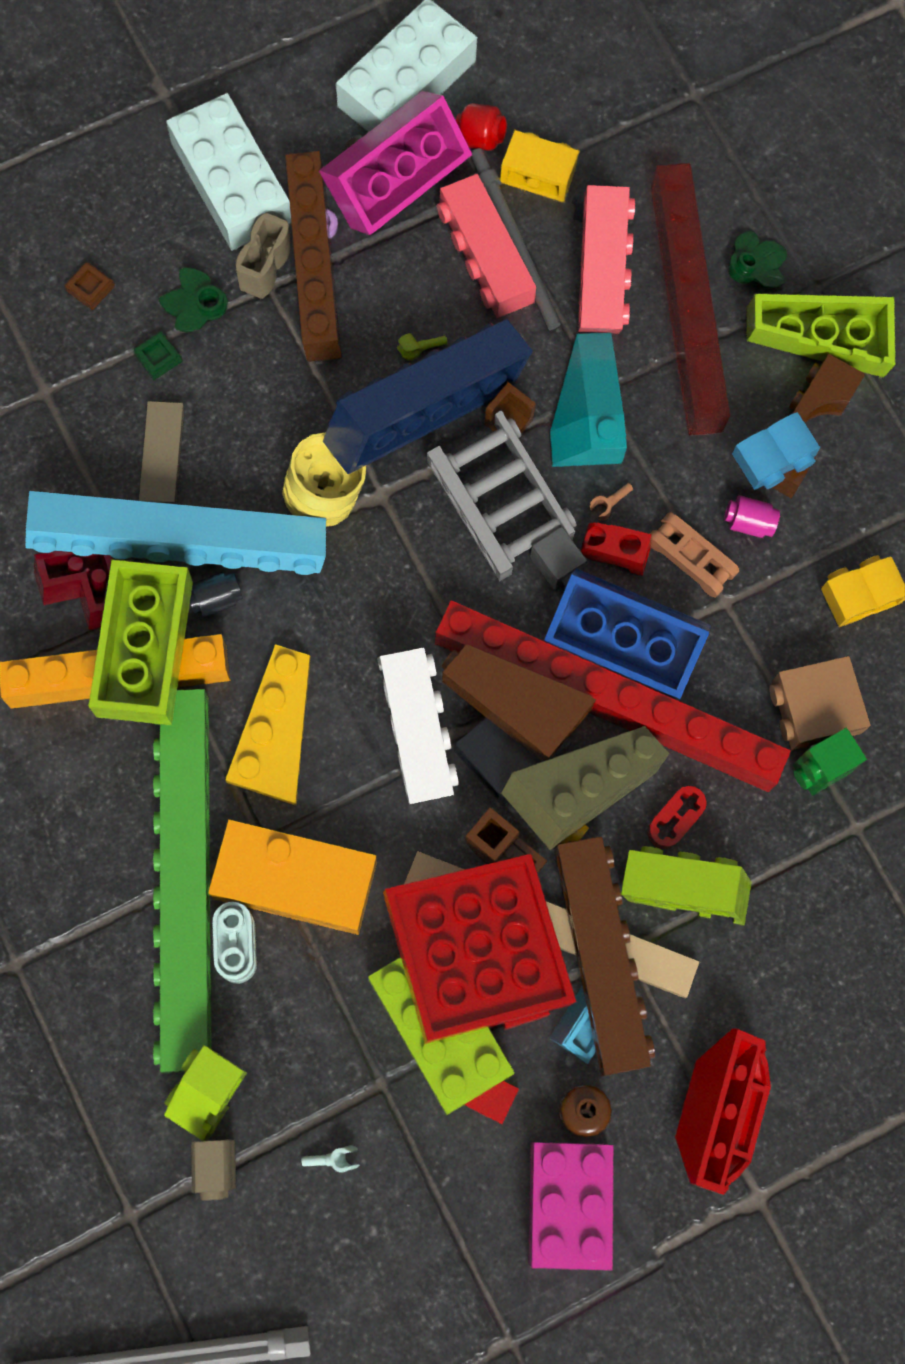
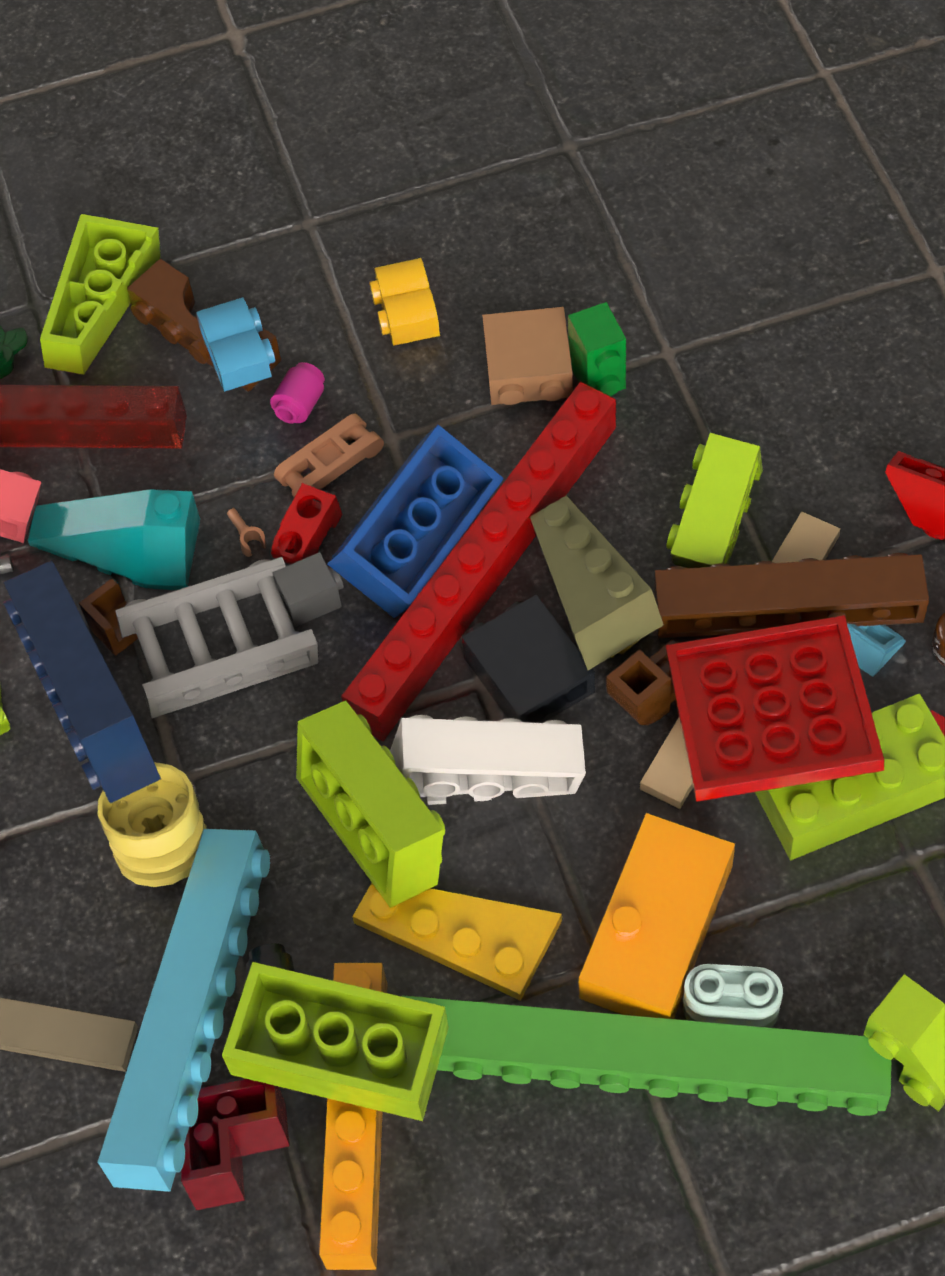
camera: 70 degrees left, 15 degrees down
(364, 630) = (369, 803): none -> lime brick
(517, 700) = (482, 633): reddish brown slope -> none
(683, 823) = (639, 510): red beam -> none

